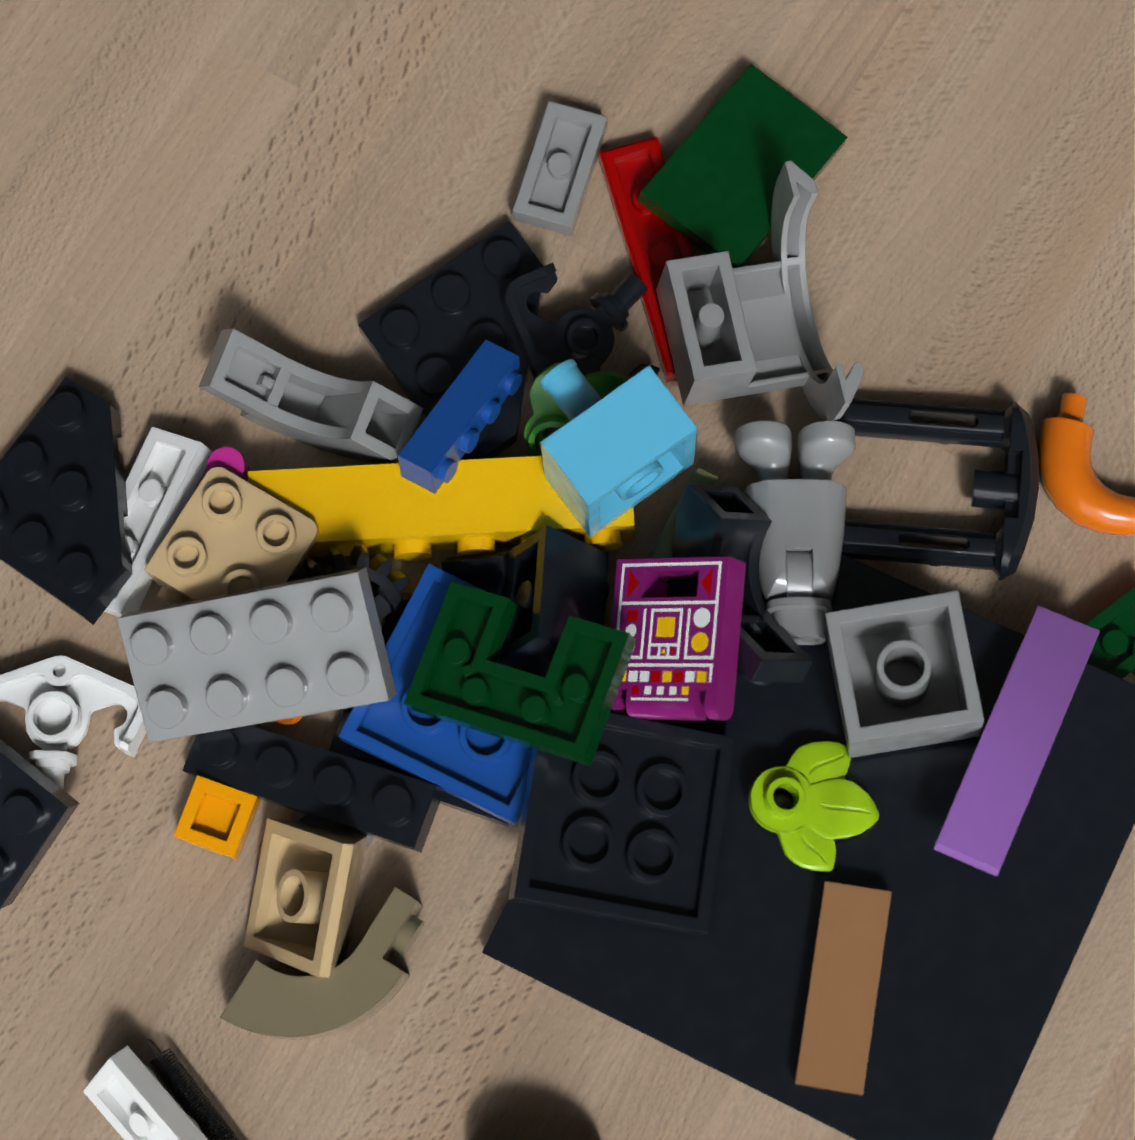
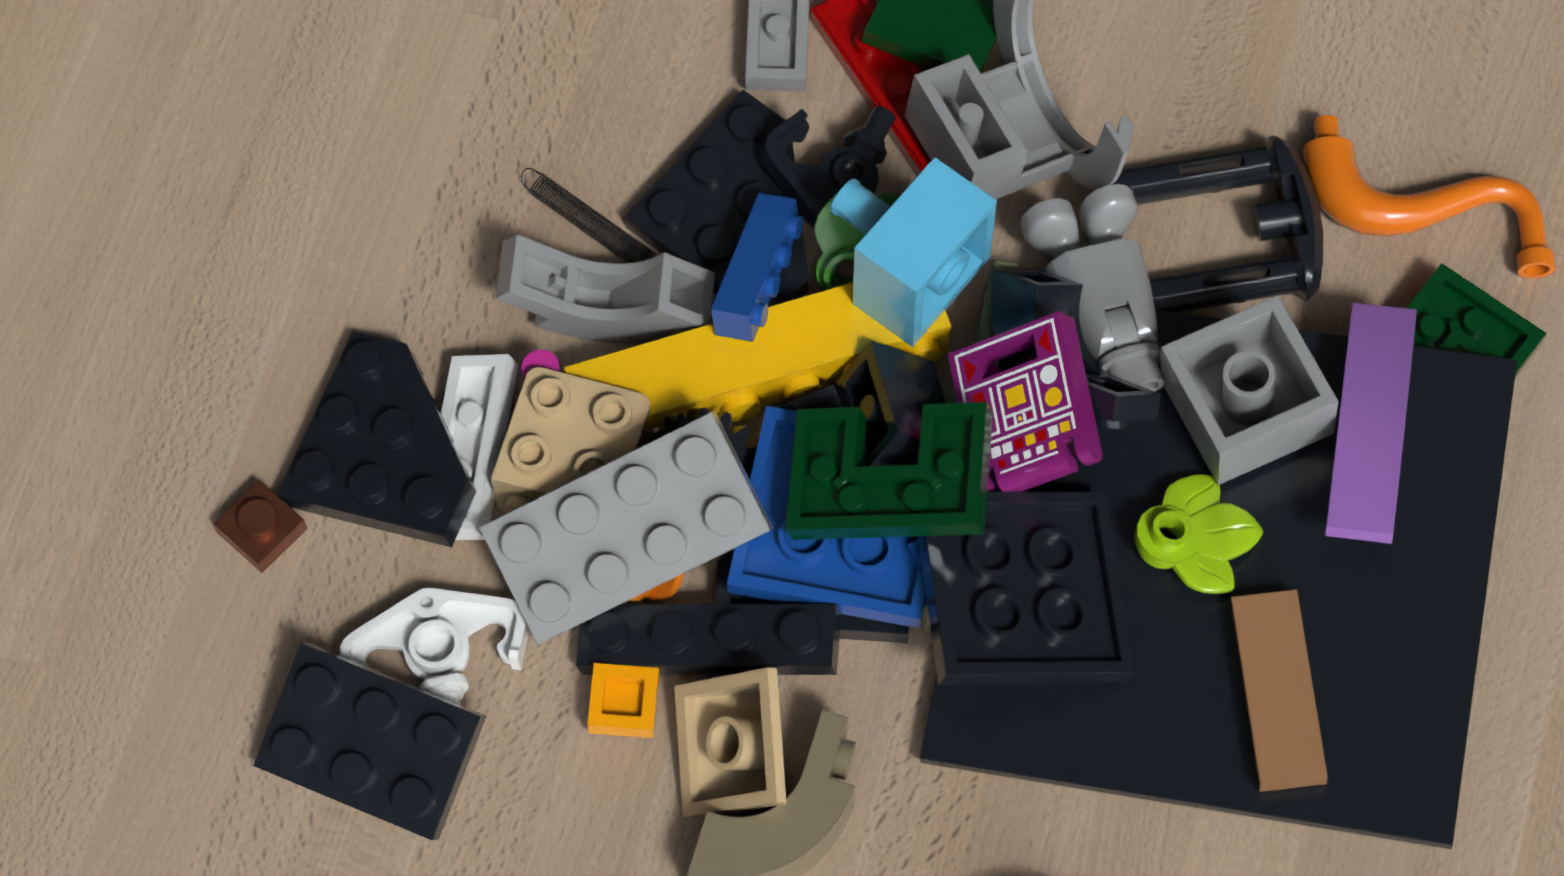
camera: 20 degrees left, 10 degrees down
(335, 322) = (591, 216): none -> black piece

